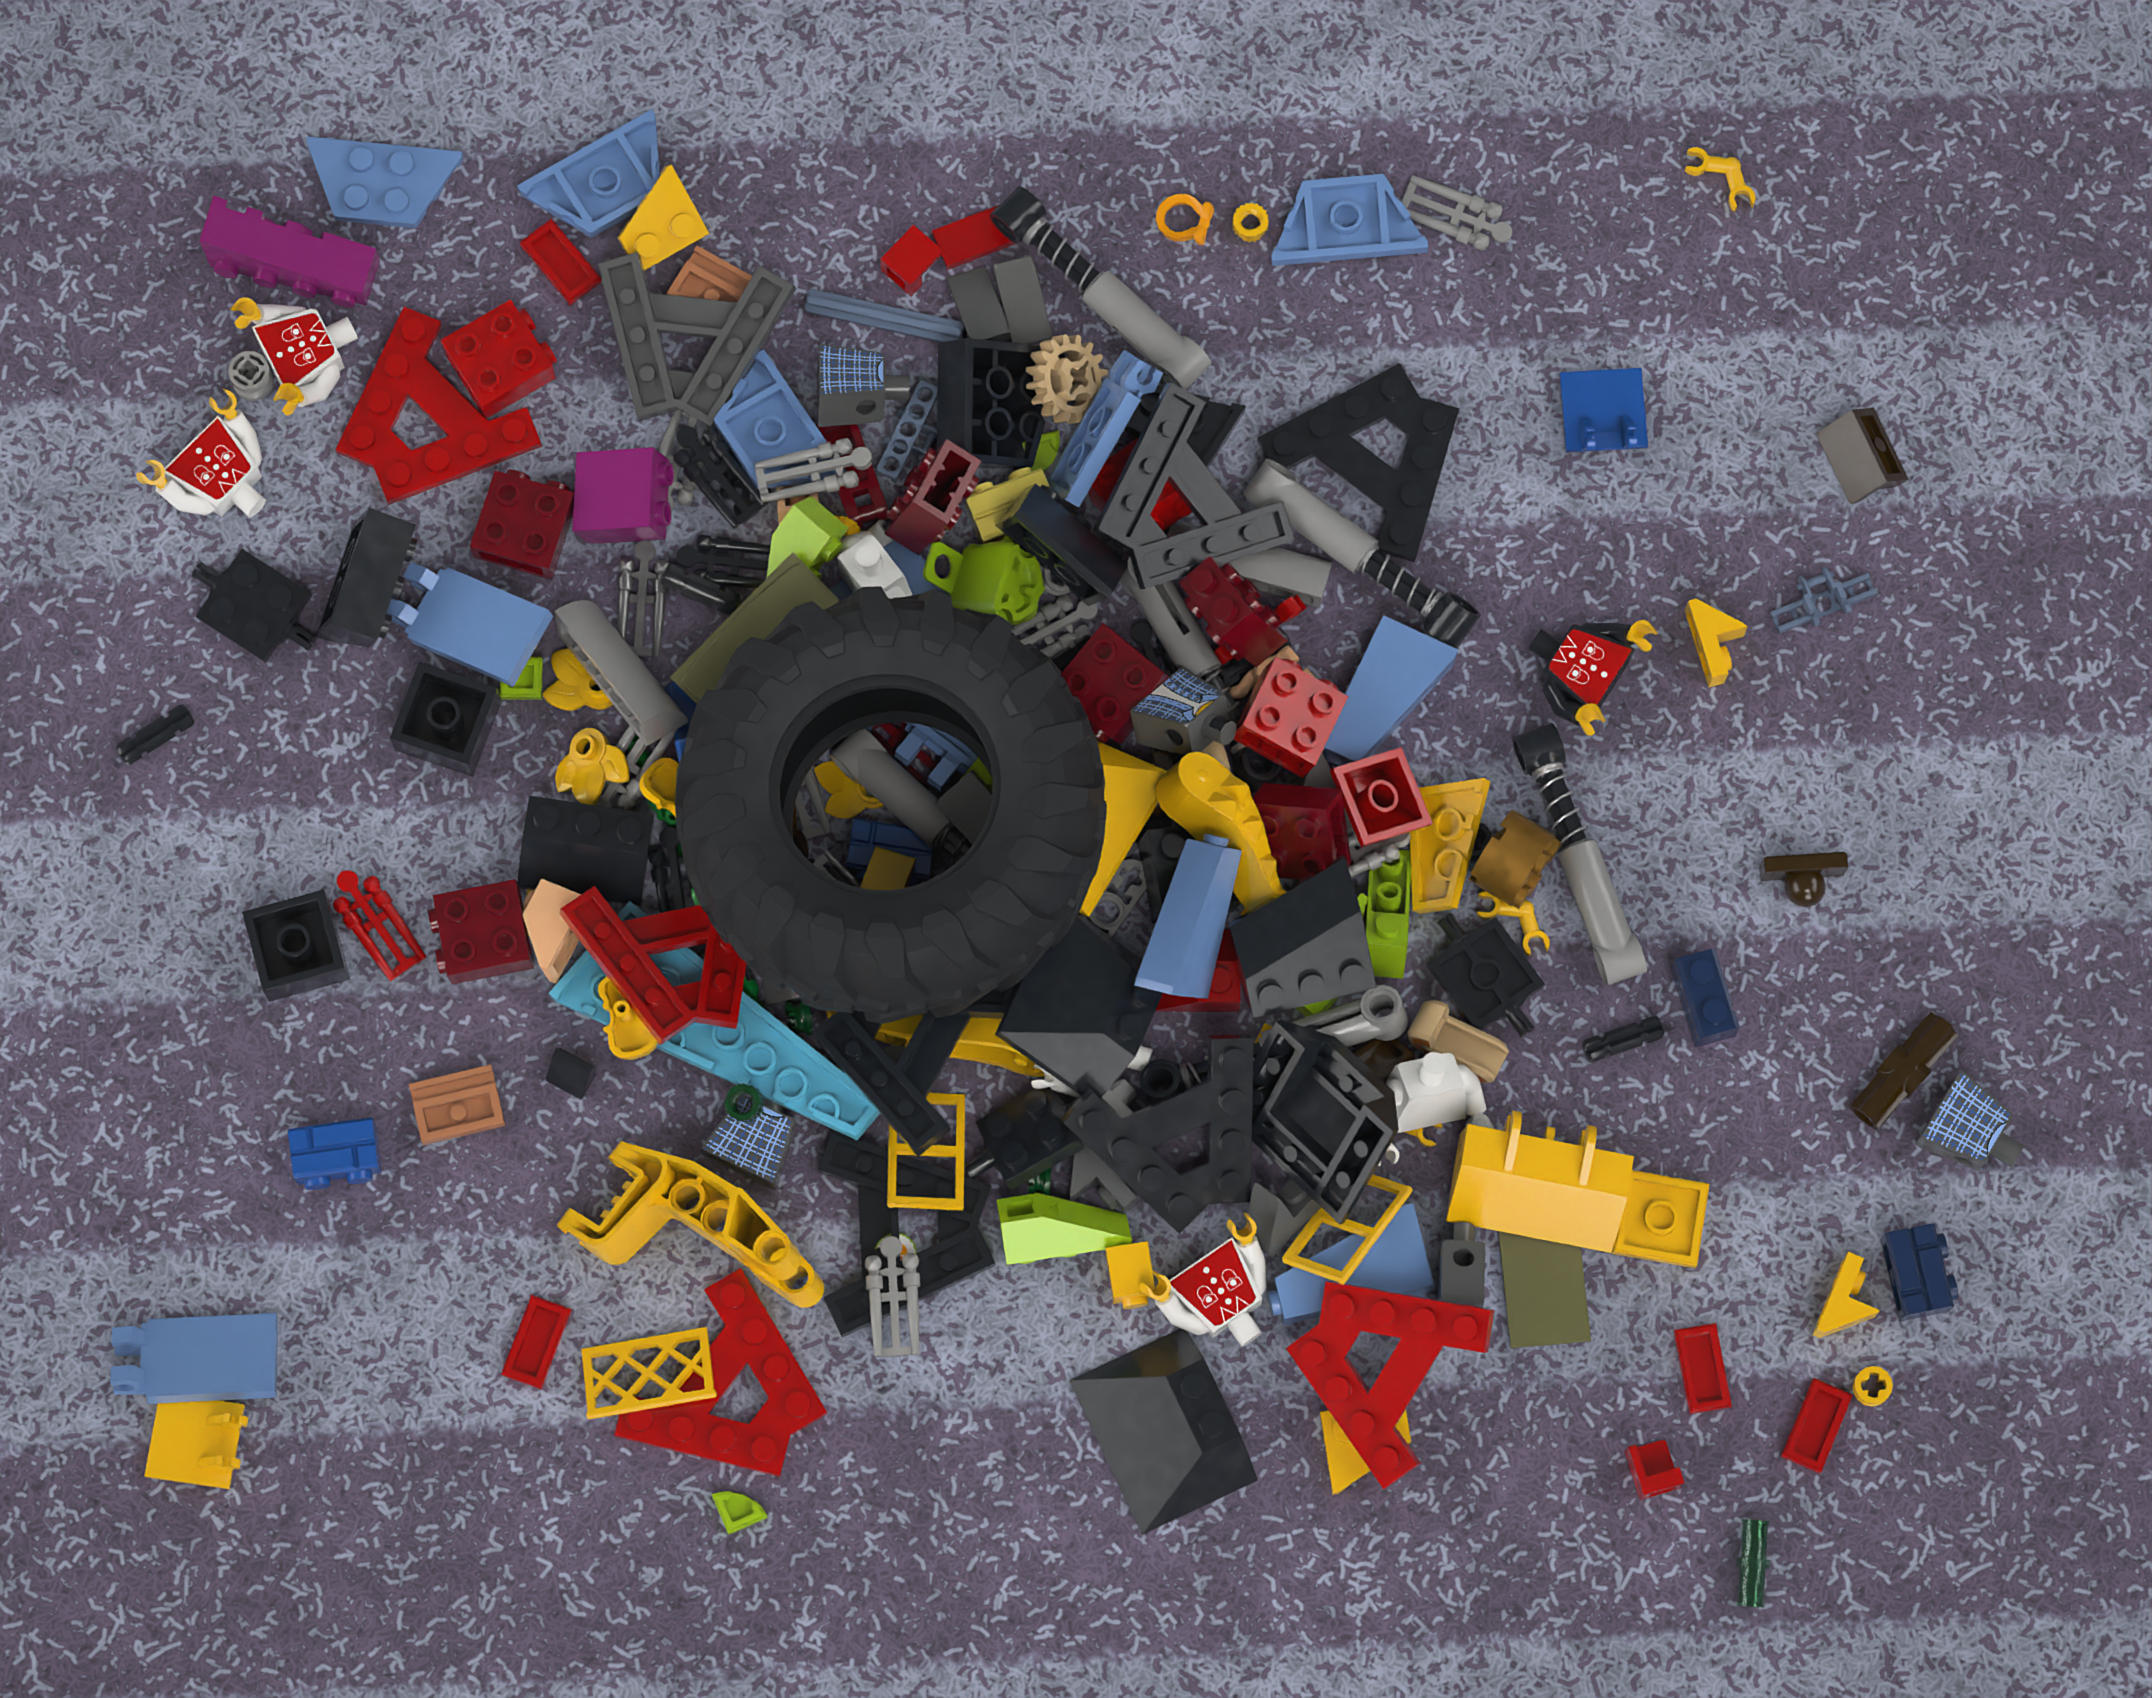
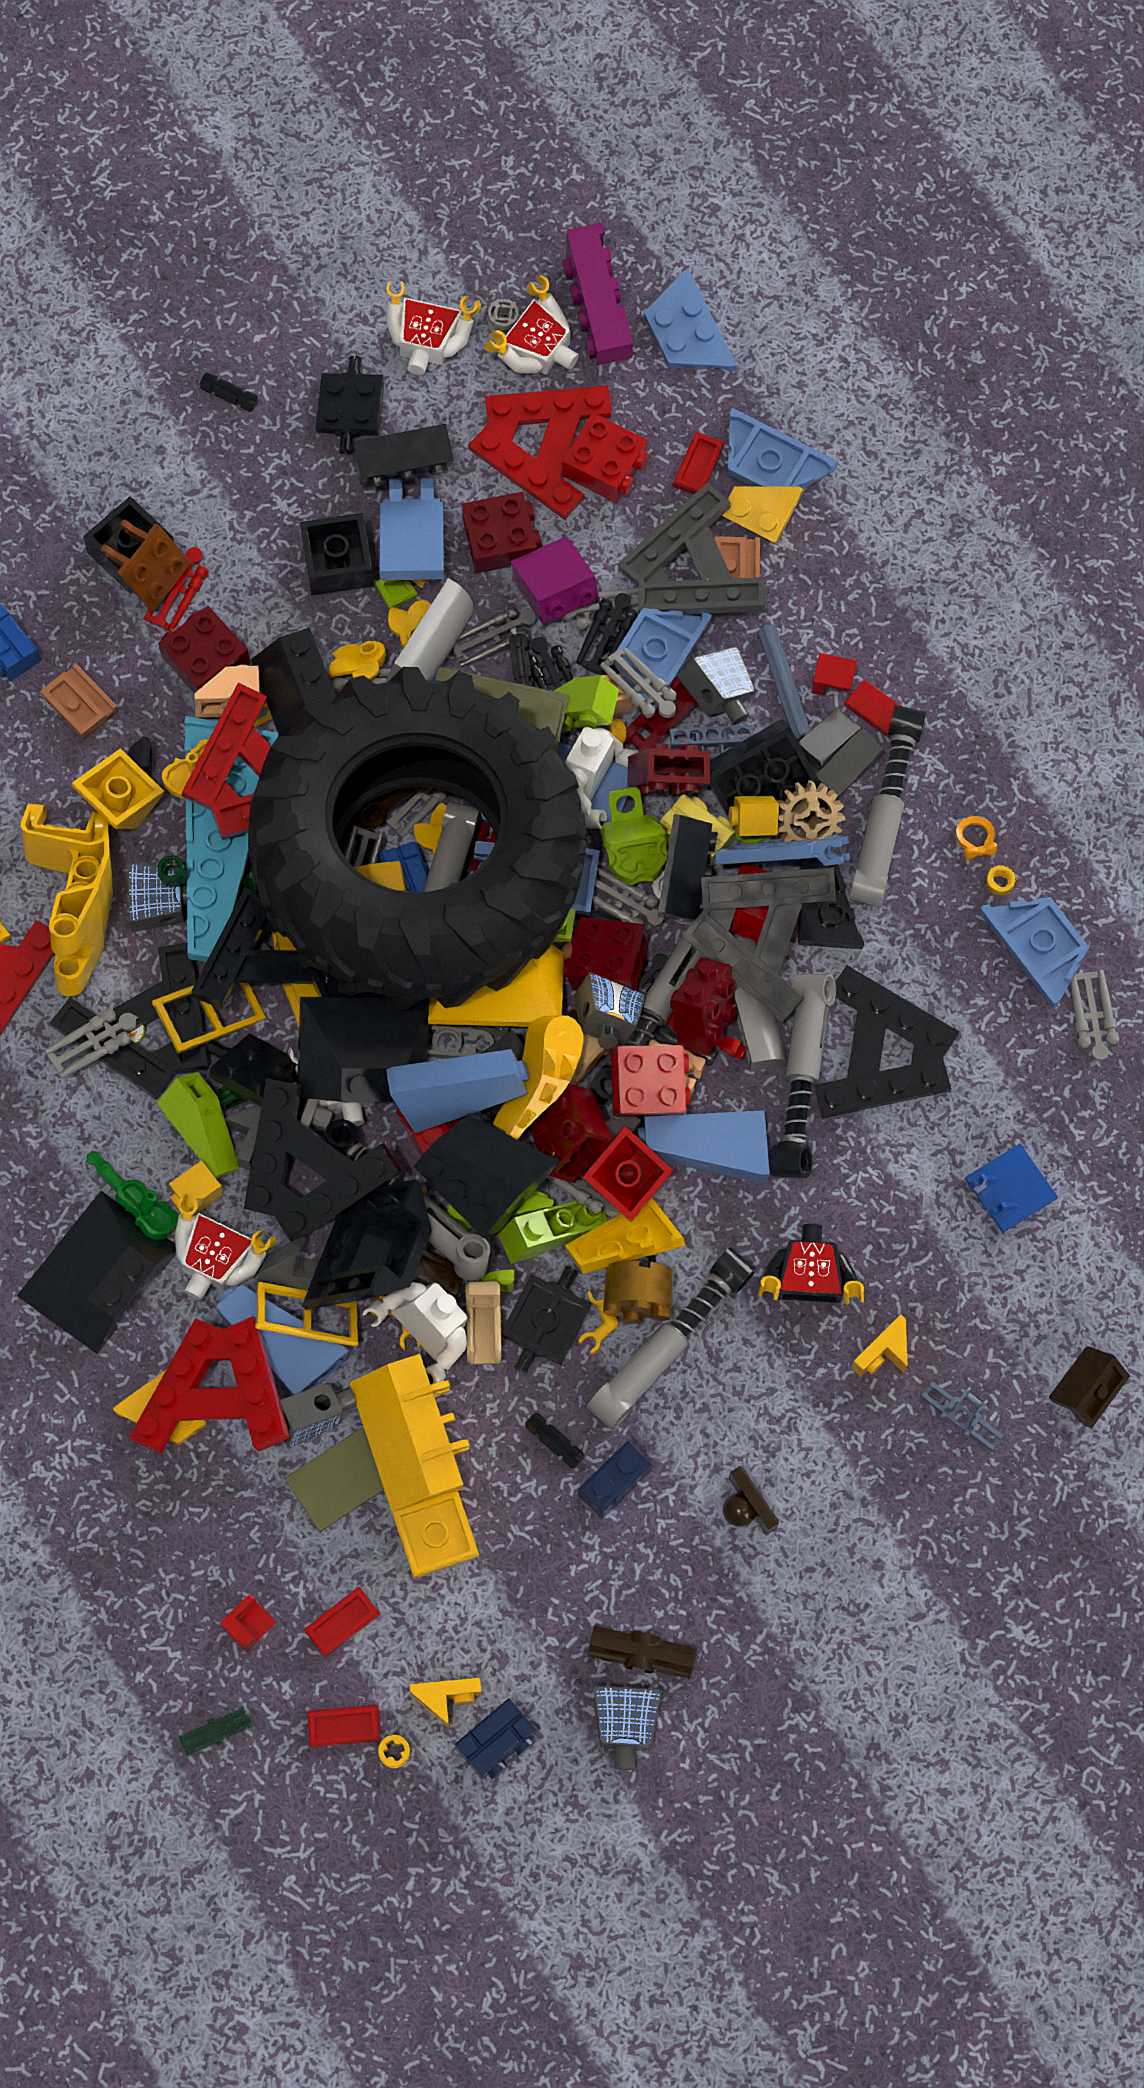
camera: 60 degrees right, 5 degrees down
(351, 930) = (152, 567): none -> dark orange plate
(603, 1113) = (119, 791): none -> yellow slope
(1036, 435) = (754, 815): none -> yellow brick
(1127, 1336) = (152, 1217): none -> green piece
(1419, 993) = (503, 1277): none -> lime tile

